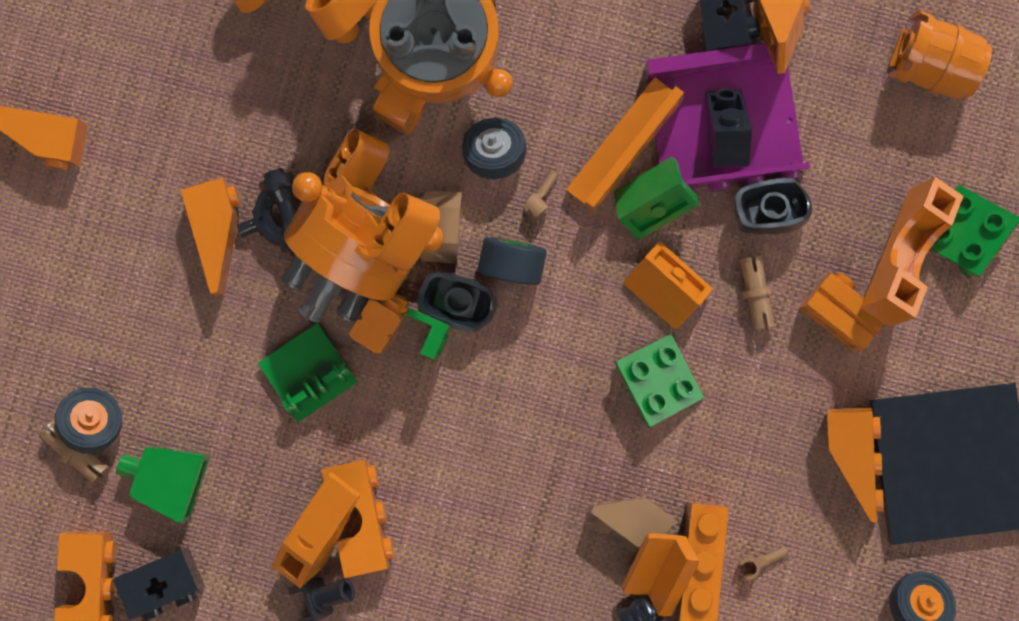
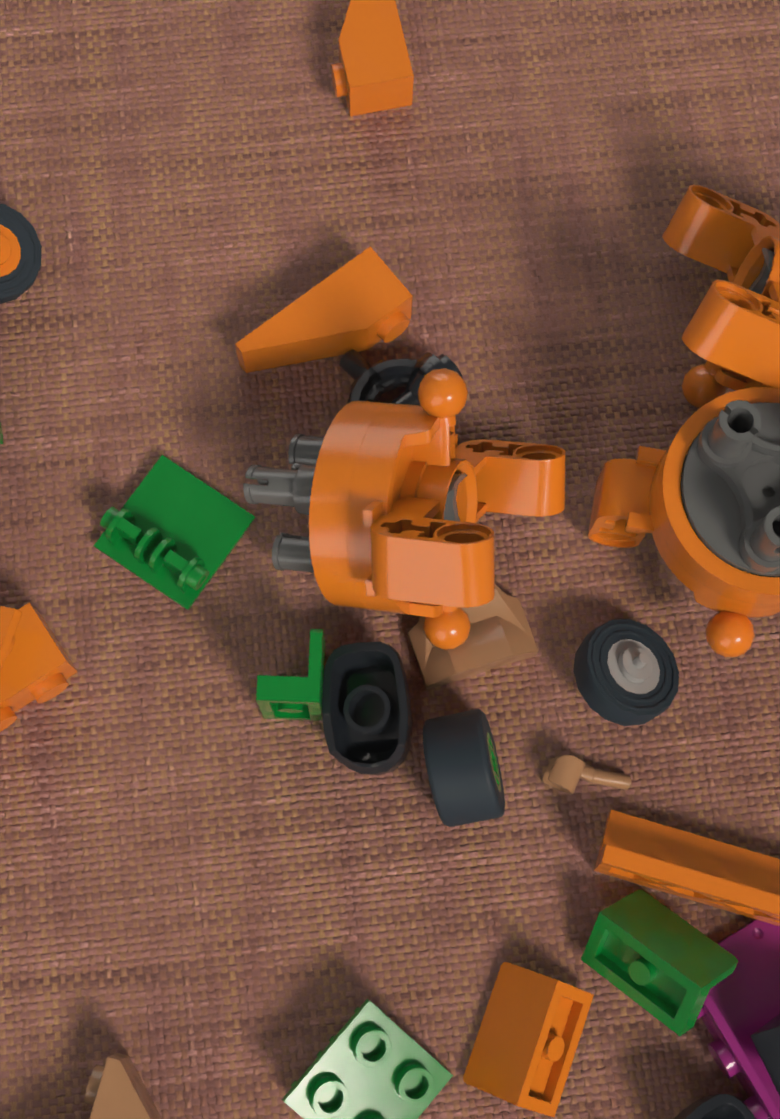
camera: 65 degrees right, 10 degrees down
(380, 323) = (284, 601): orange brick -> none

